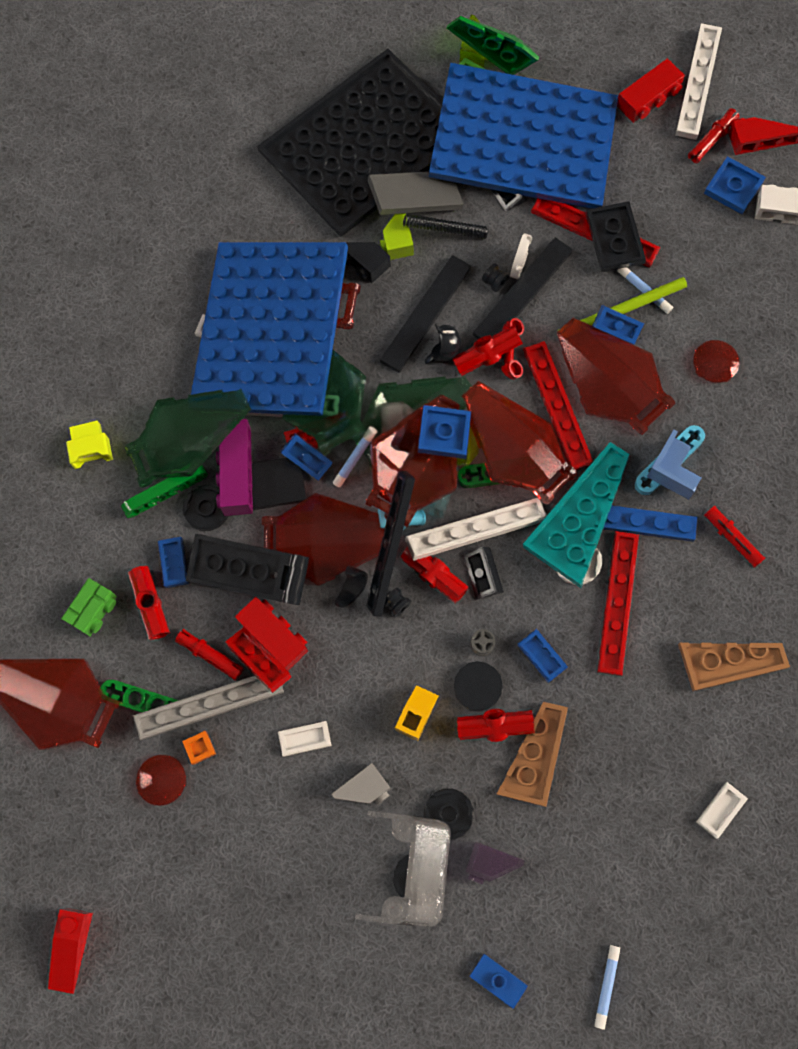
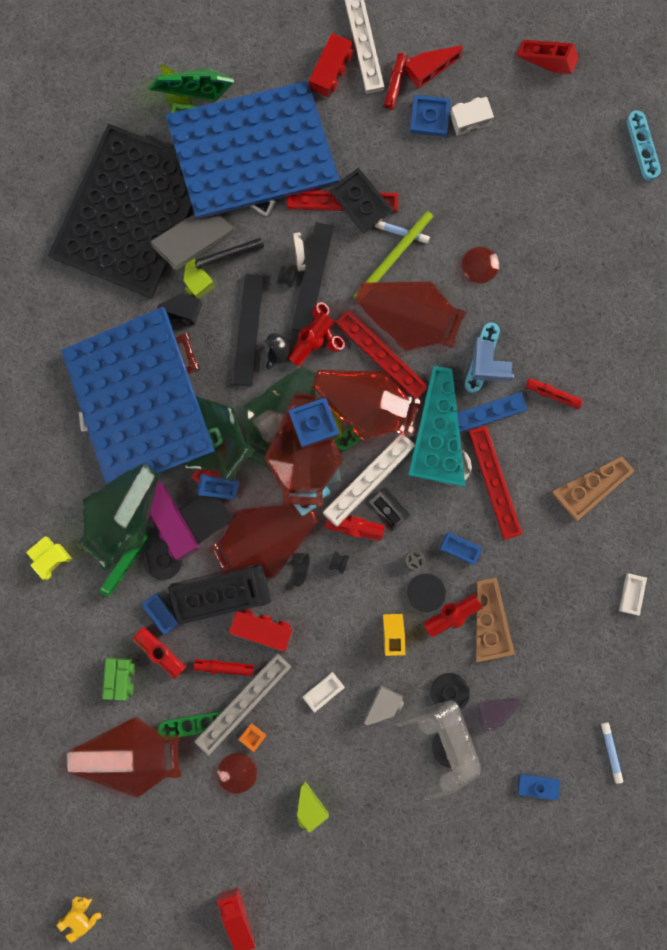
camera: 30 degrees left, 10 degrees up
(219, 862) = (310, 809): none -> lime slope
(258, 659) = (262, 654): red plate -> none
(355, 456) = (254, 470): light blue bar -> none
(390, 542) = (316, 524): black tile -> none
(618, 324) = (396, 271): blue plate -> none

